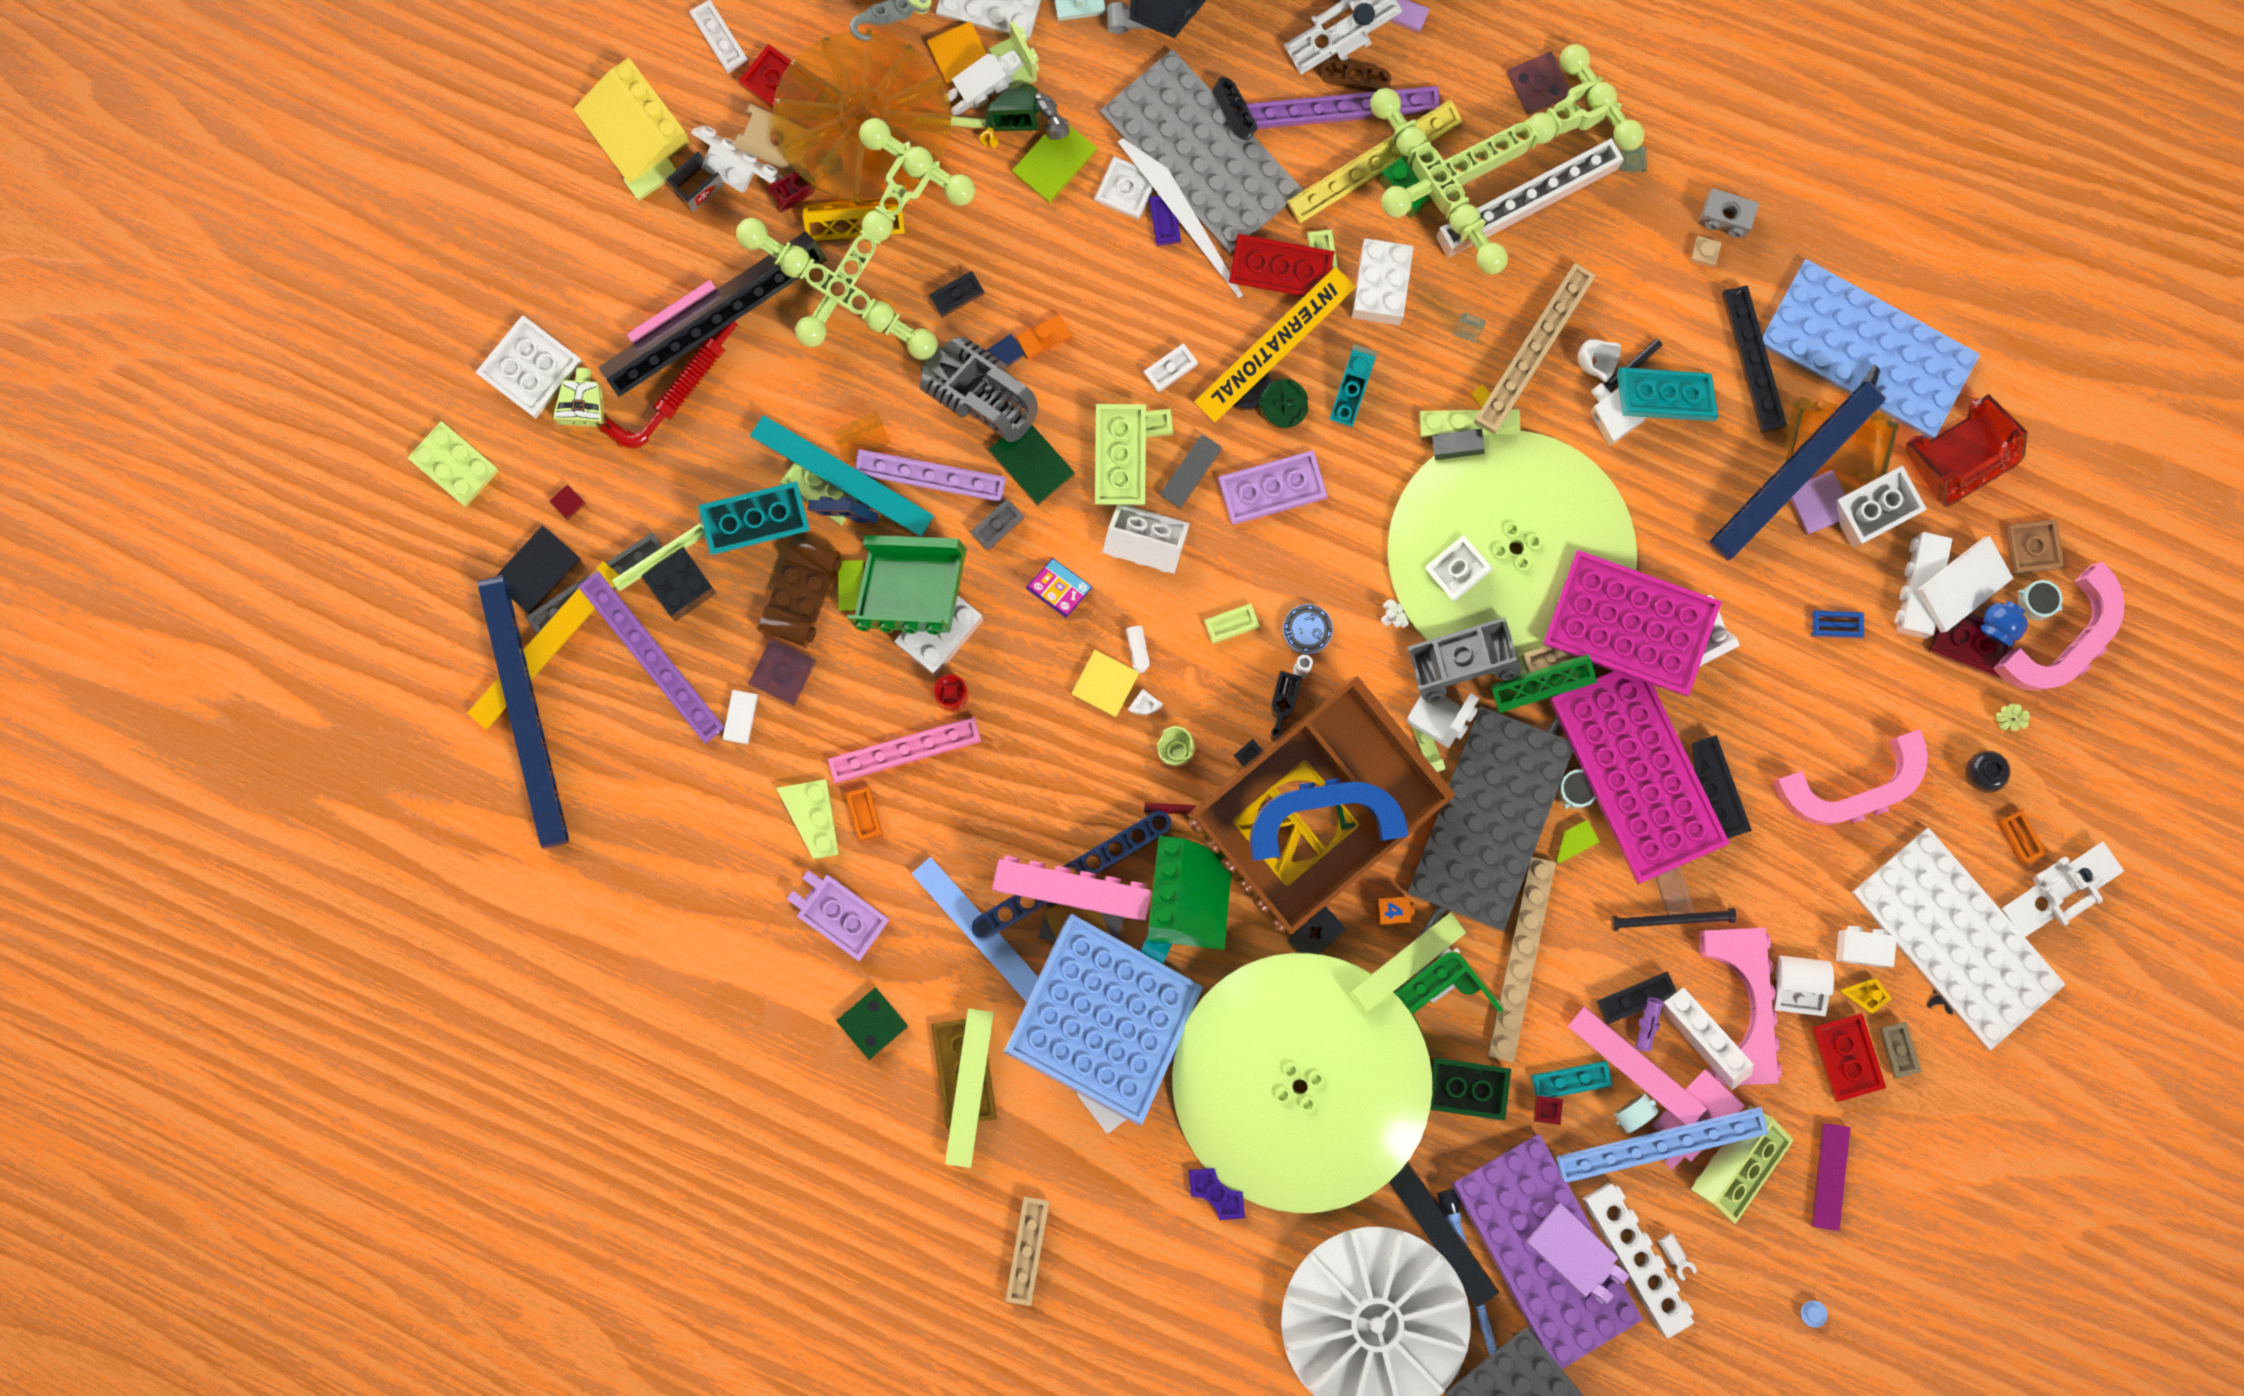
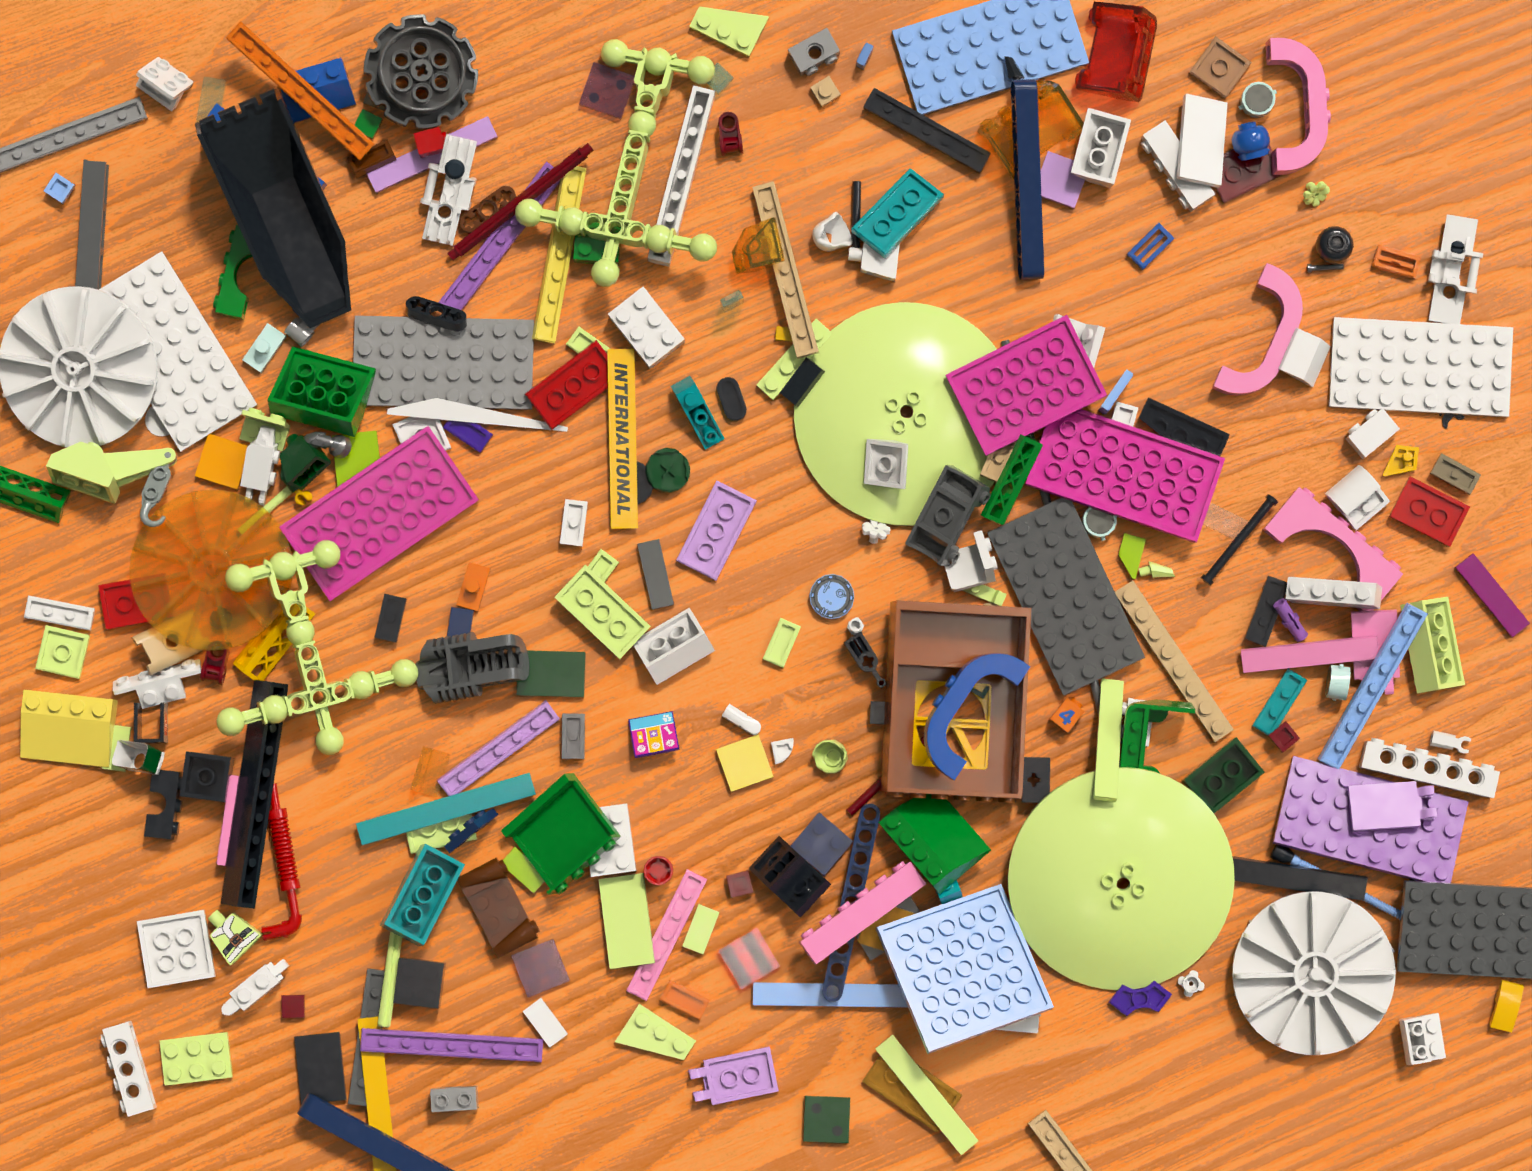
camera: 40 degrees left, 5 degrees up
(397, 430) = (125, 1033): none -> white brick
(553, 456) = (254, 987): none -> white hinge
(608, 699) = (454, 1098): none -> light grey brick
(624, 266) = (165, 824): none -> black arch
(658, 202) = (125, 756): none -> white piece
(689, 66) = (62, 652): none -> yellowish green tile
(691, 261) = (206, 776): none -> black brick
(885, 706) = (626, 921): none -> yellowish green tile
(935, 773) = (701, 929): none -> yellowish green tile
(947, 835) = (749, 958): none -> clear pink tile
(1001, 770) = (739, 884): none -> dark red plate
(1036, 209) = (382, 511): none -> dark pink plate
(1046, 804) = (789, 876): none -> black bracket
(1087, 76) = (322, 391): none -> green slope
(1097, 807) = (821, 843): none -> dark blue plate
(1275, 1221) = (1197, 984): none -> white plate
(1389, 403) = (731, 399): none -> black tile
(1406, 94) = (531, 192): none -> dark red piece
(1531, 310) = (758, 247): none -> clear yellow slope
(1581, 874) = (1156, 570): none -> yellowish green bar
(1596, 209) = (730, 136): none -> dark red piece
(1682, 133) = (730, 28): none -> yellowish green wing
(1685, 728) = (1125, 413): none -> white plate
(1695, 703) = (1116, 391): none -> light blue tile
(1765, 255) = (864, 55): none -> medium blue tile
(1874, 833) = (1304, 357): none -> white slope
(1948, 771) = (1310, 268): none -> dark grey piece

